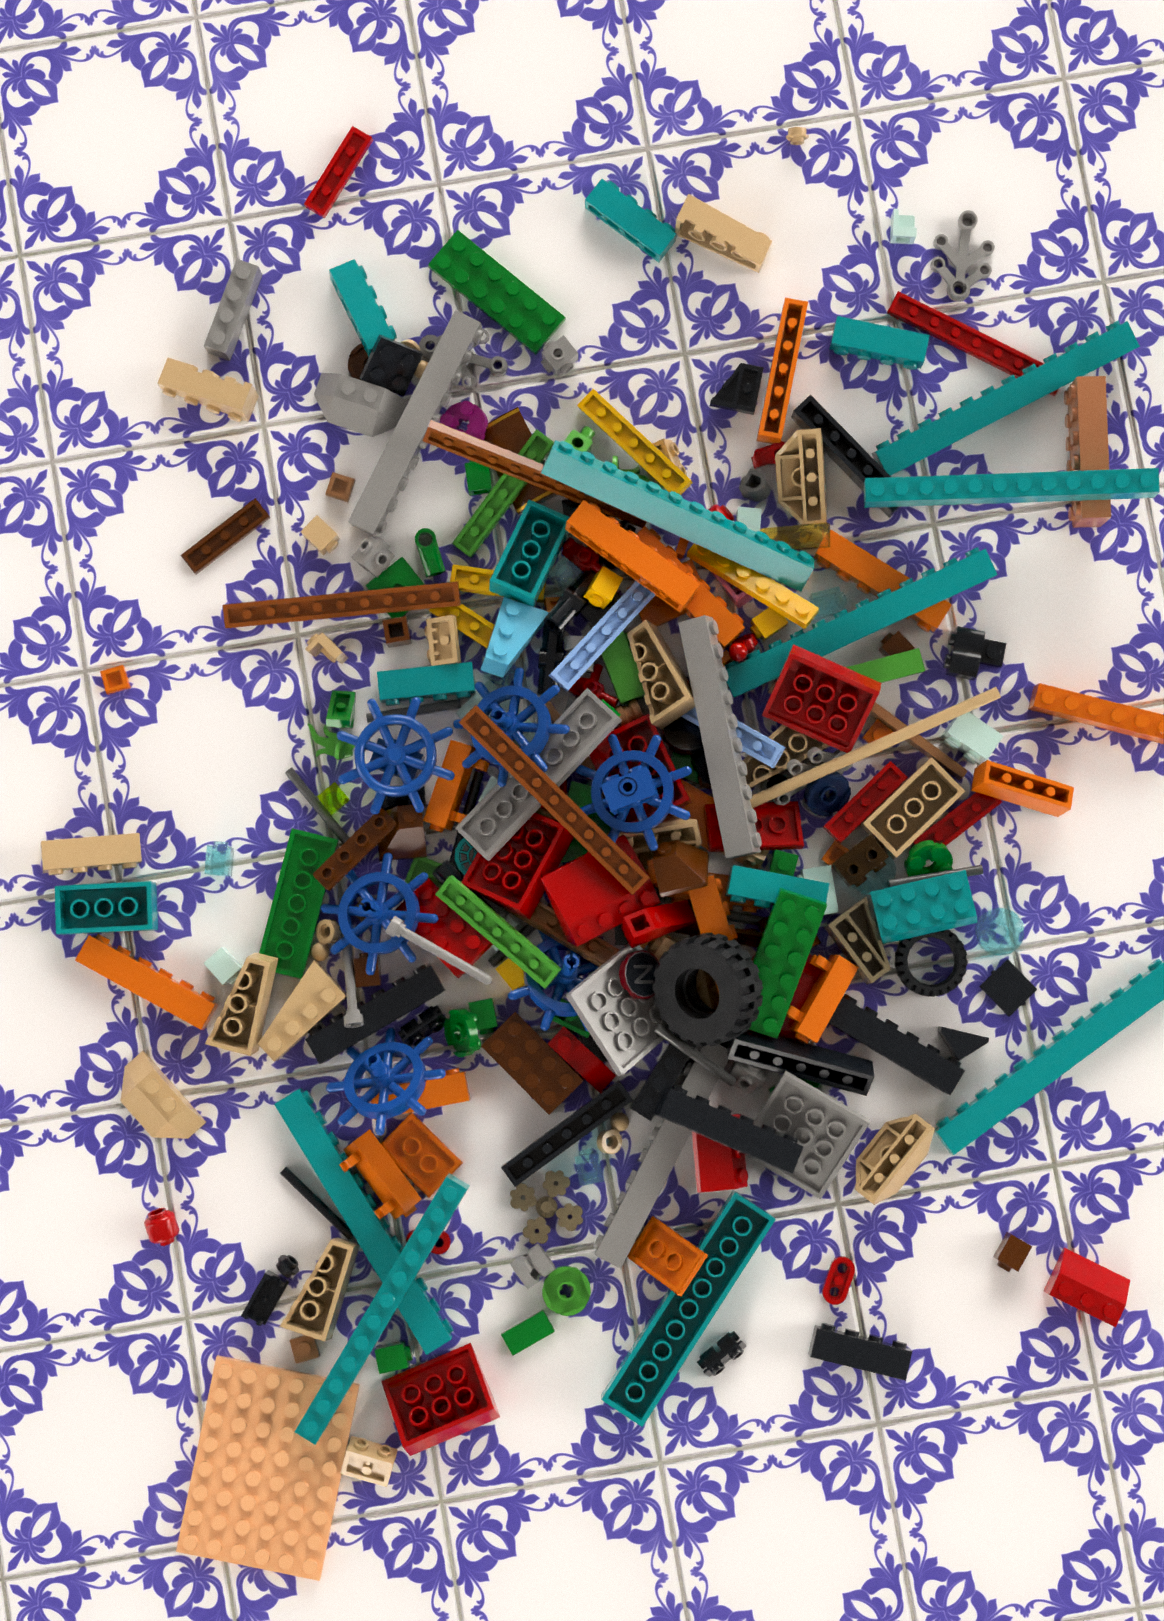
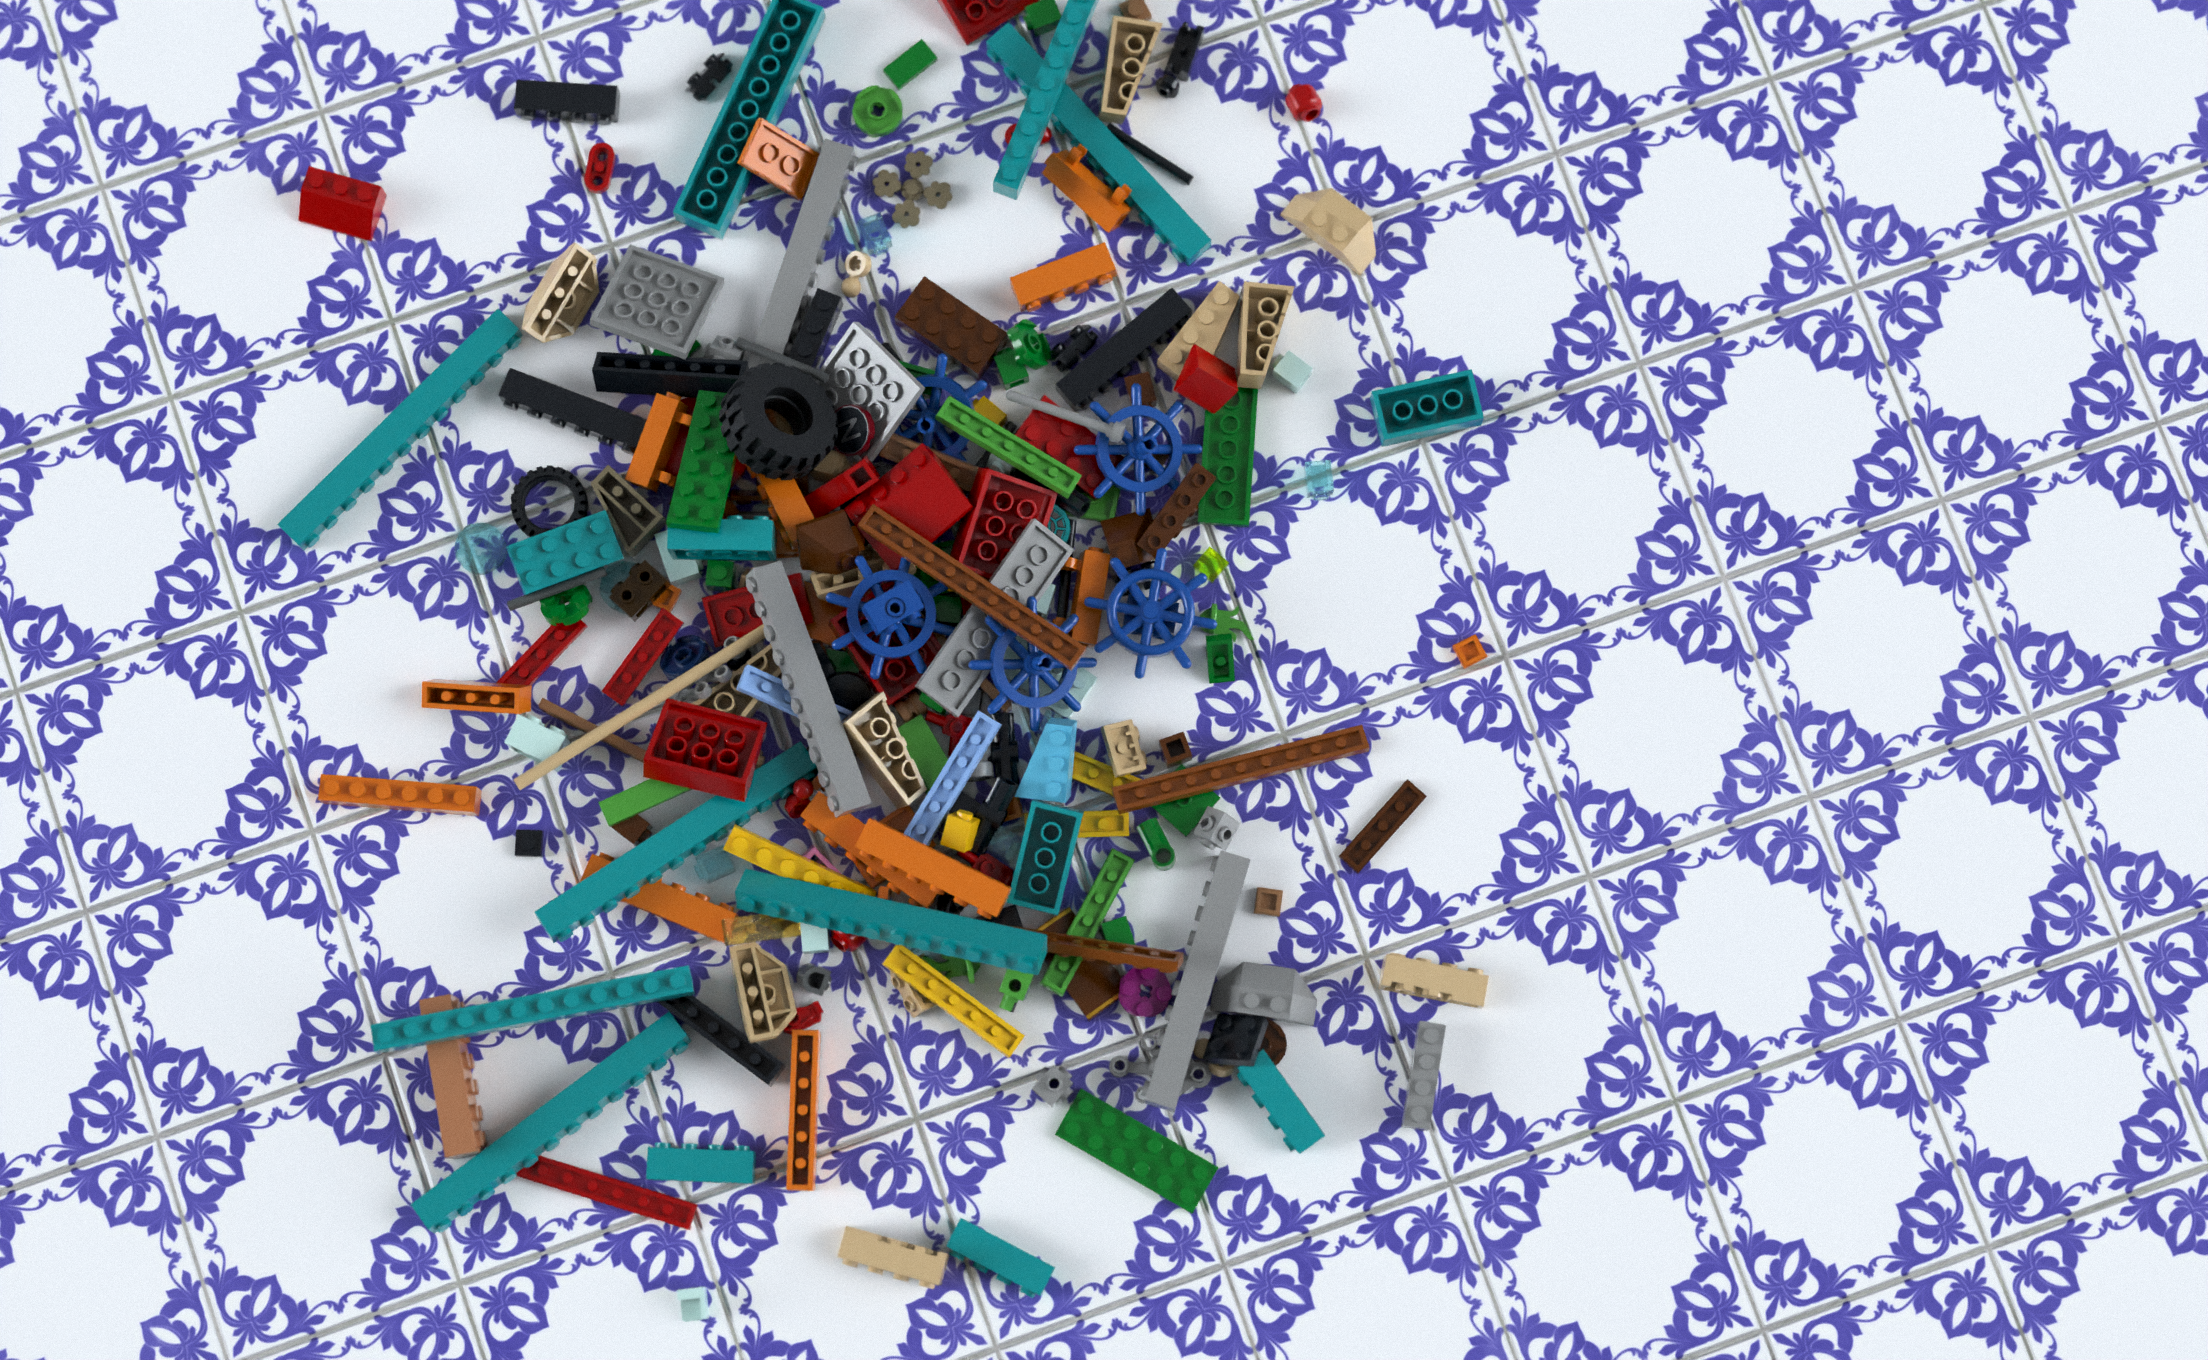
camera: 170 degrees right, 5 degrees down
(90, 852) = (1455, 460): tan wedge -> none
(146, 981) = (1368, 342): orange brick -> none
(302, 966) = (1206, 380): none -> red slope
(317, 805) = (1237, 564): dark grey bar -> none
(320, 535) = (1278, 842): tan brick -> none
(324, 644) = (1240, 717): tan bracket -> none
(326, 932) = (1191, 424): tan plate -> none
(338, 172) = (1338, 1256): red plate -> none
(353, 1016) = (1145, 340): light grey piece -> none
(385, 1080) = (1098, 279): blue piece -> none
(420, 1154) = (1051, 219): orange tile -> none
(423, 709) = (1130, 677): dark grey bar -> none
(426, 682) = (1135, 703): teal brick -> none
(532, 1266) = (915, 127): light grey wheel -> none
(566, 1133) = (903, 263): black brick -> none
(581, 1059) = (903, 342): red slope -> none
(718, 1165) = (741, 269): red slope -> none
(729, 1130) = (734, 287): black brick -> none
(740, 390) = (847, 1085): black wing -> none
(767, 624) = (777, 828): yellow brick -> none
(876, 732) = (638, 733): orange plate -> none
(912, 808) = (591, 657): tan brick -> none
(961, 260) = (622, 1277): light grey plant -> none
(961, 1043) = (504, 426): black slope -> none
(964, 653) = (558, 835): black brick -> none
(1008, 988) = (464, 493): black piece -> none
(1011, 1253) = (424, 224): reddish brown brick -> none

